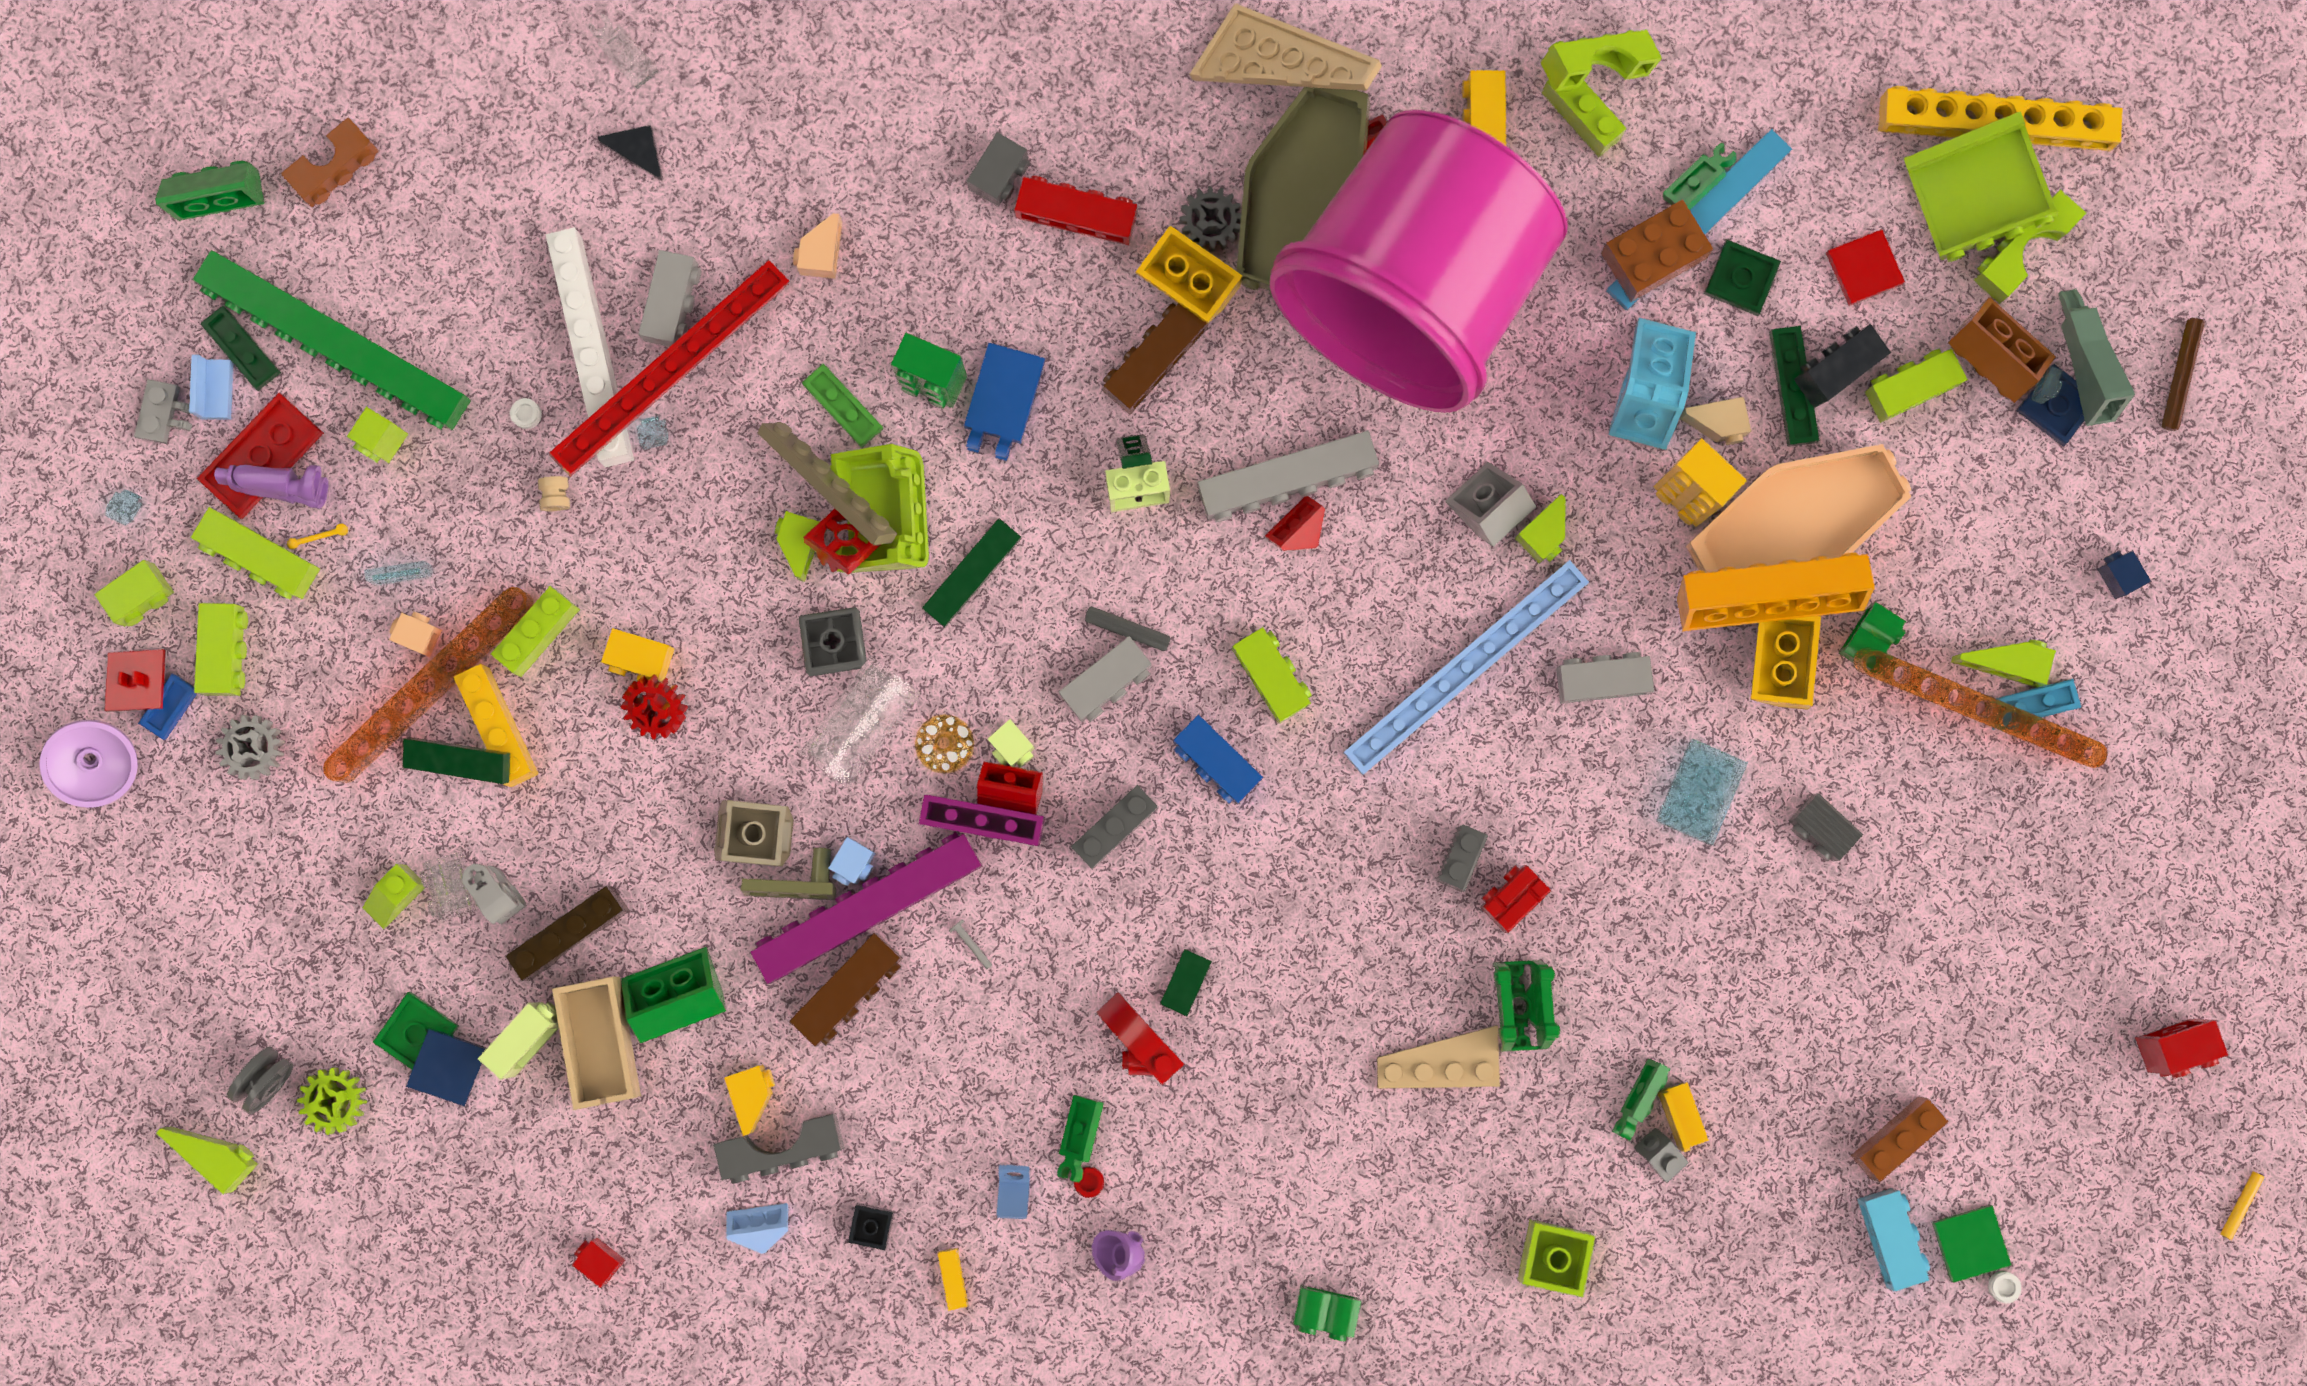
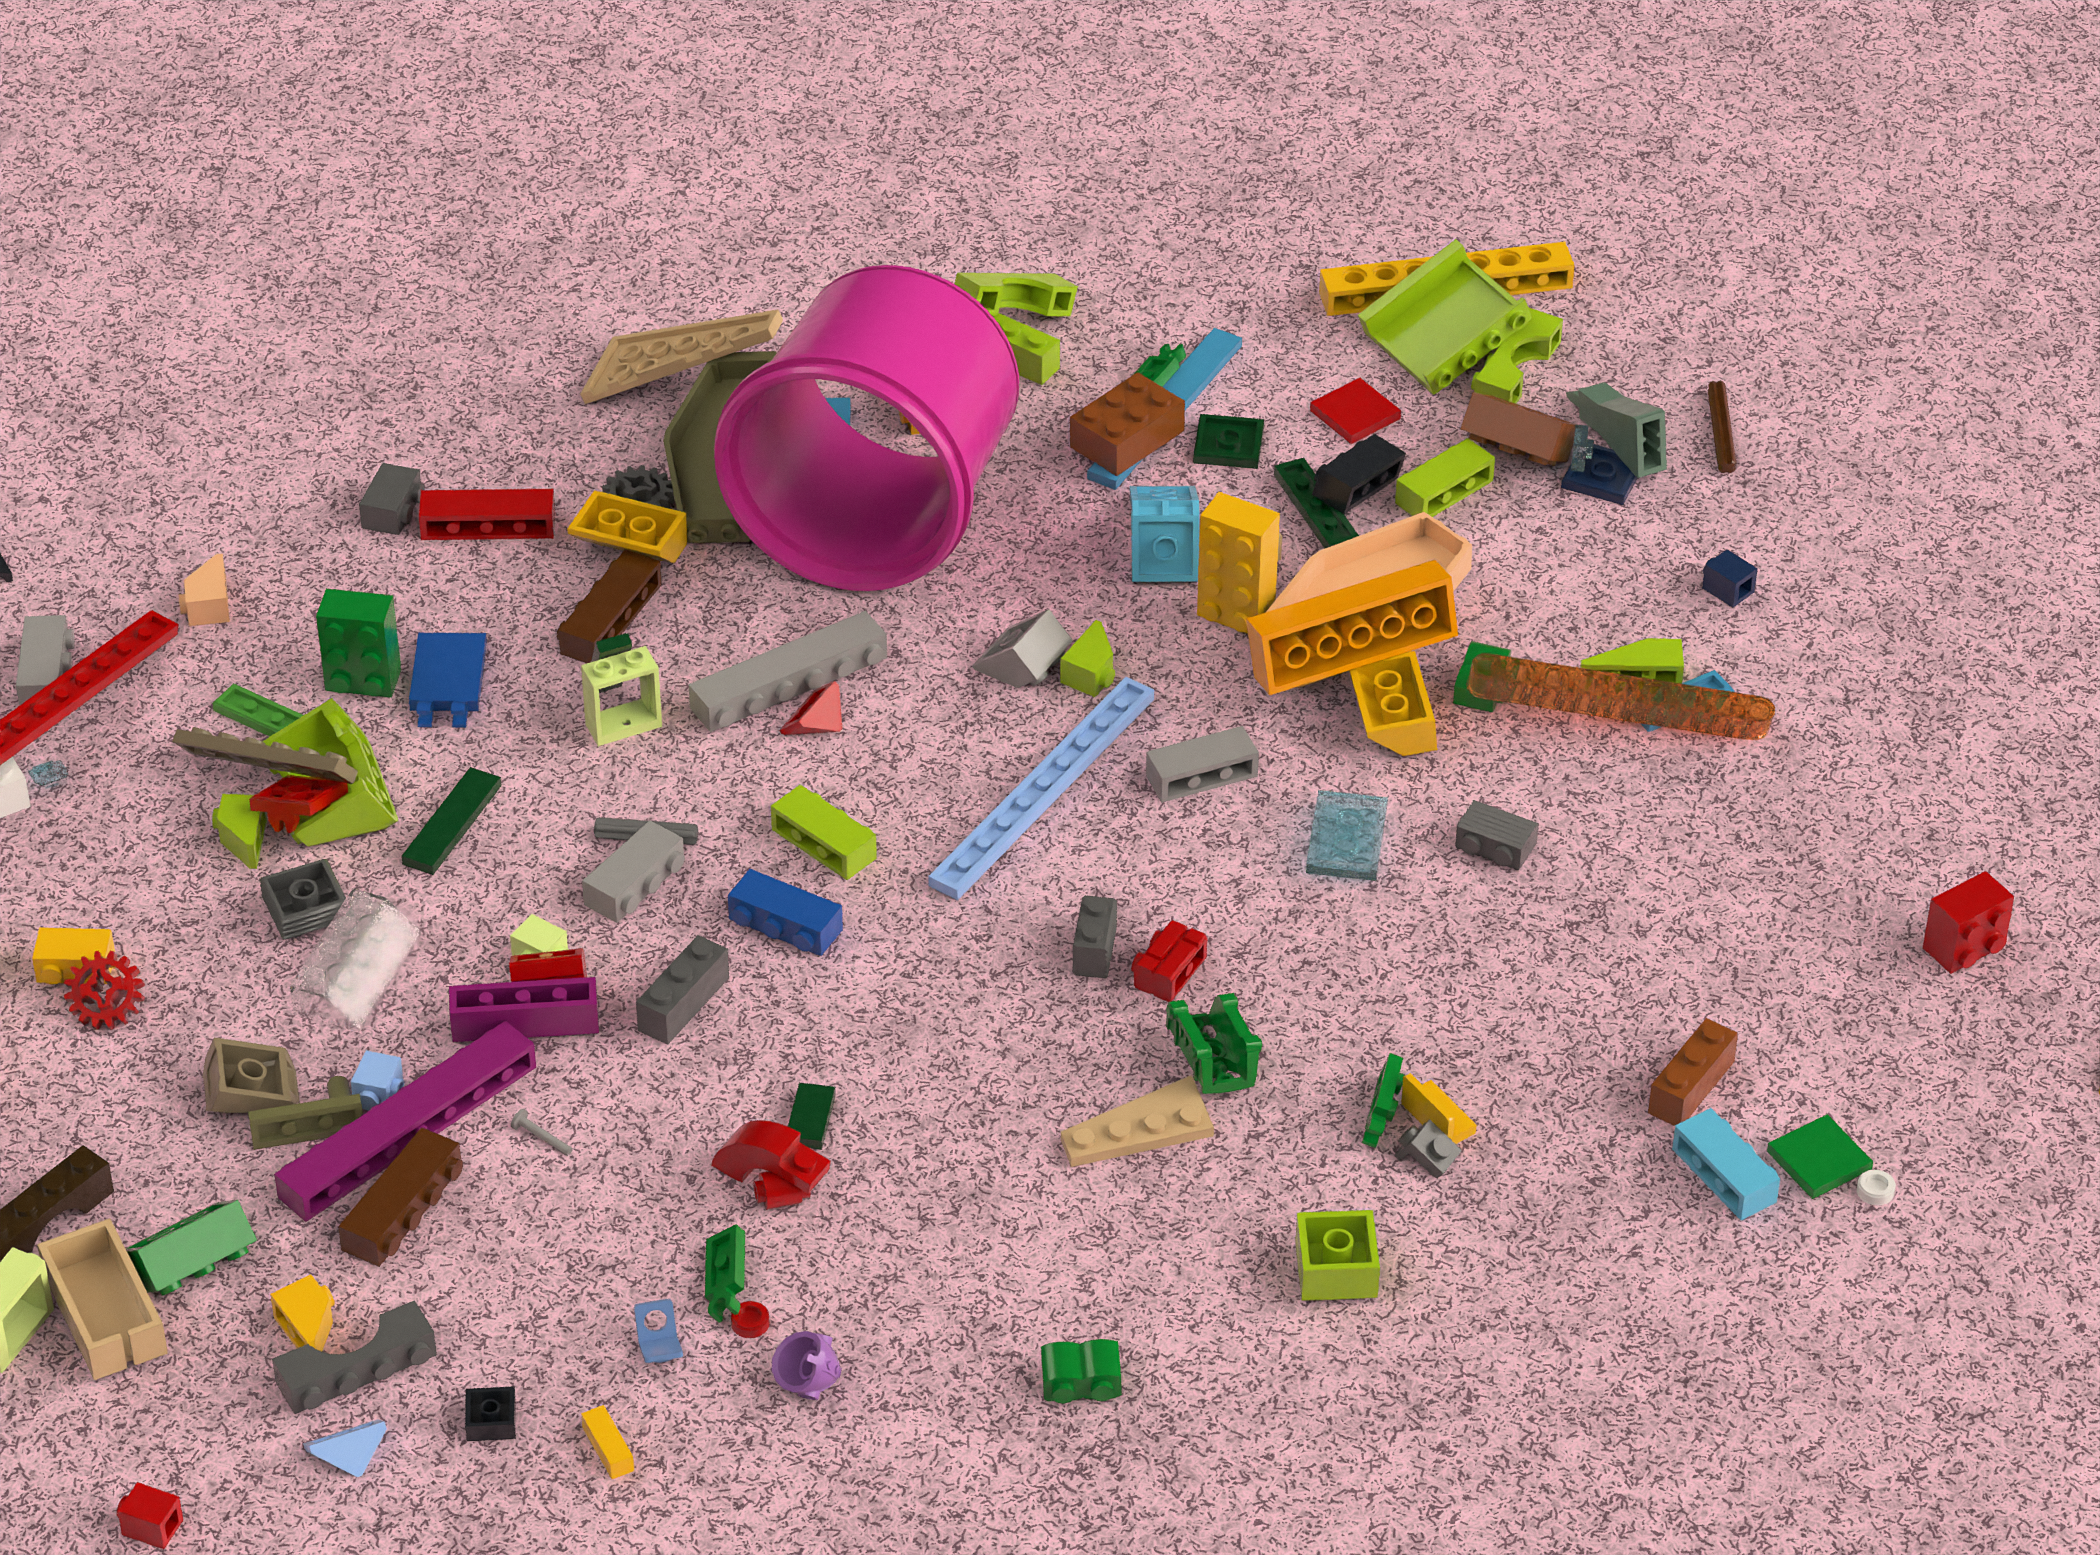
camera: 15 degrees left, 40 degrees down
(955, 755) = (459, 966): clear yellow dish -> none

